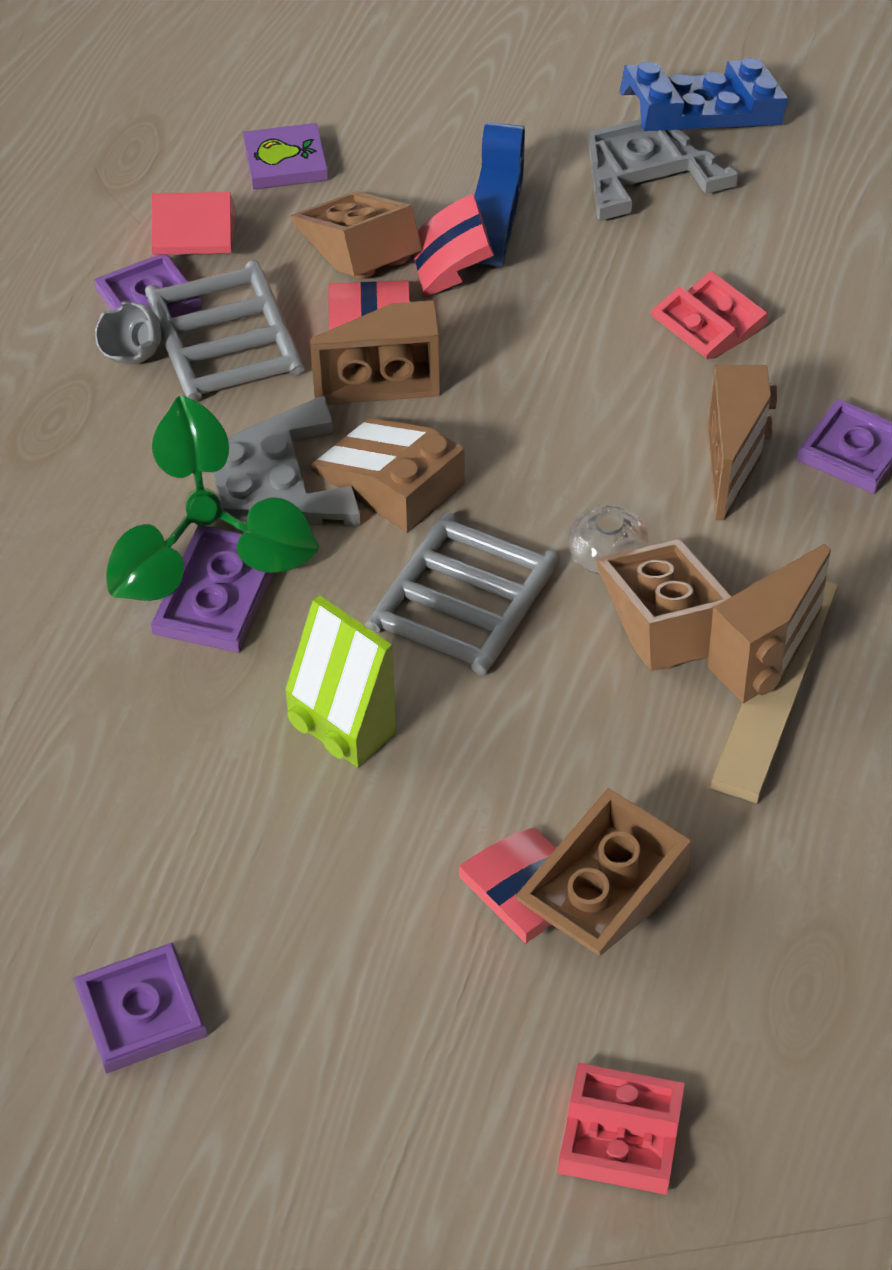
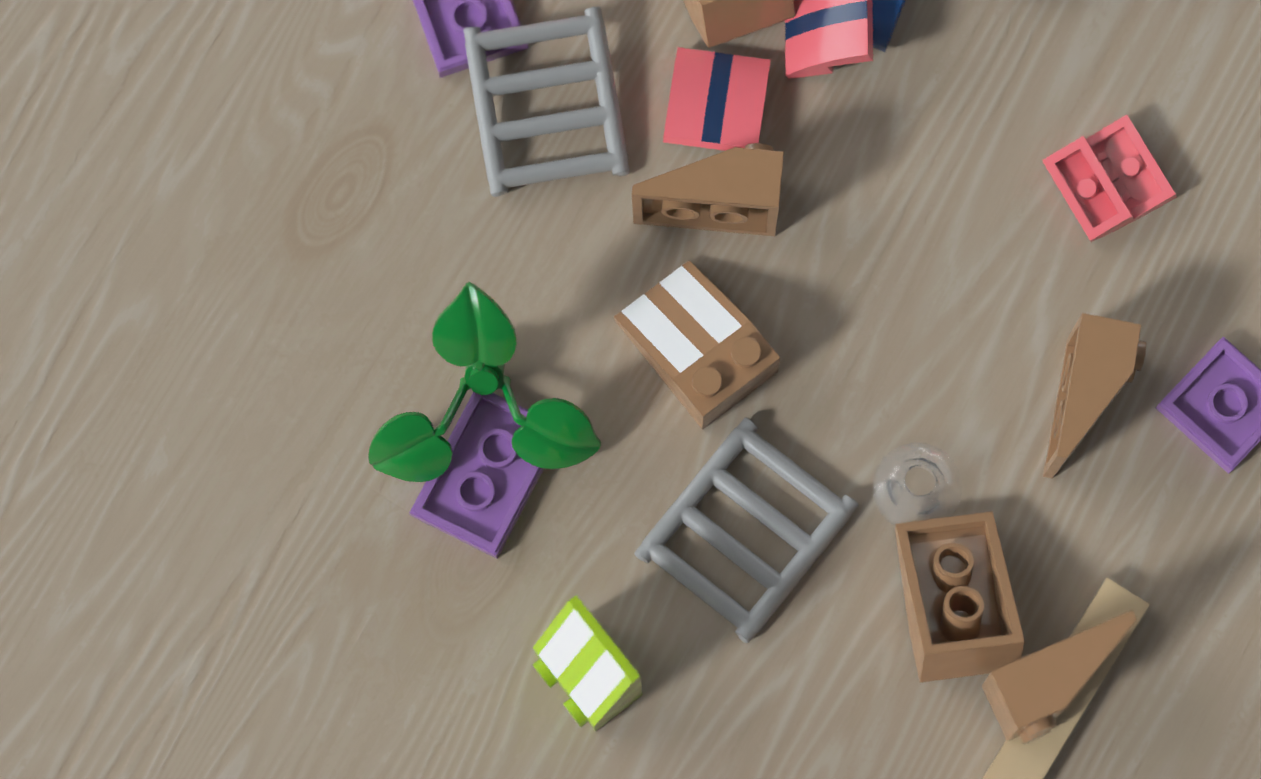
camera: 15 degrees right, 25 degrees up
(128, 333) = (436, 95): light grey hair -> none
(266, 466) = (558, 319): light grey wing -> none

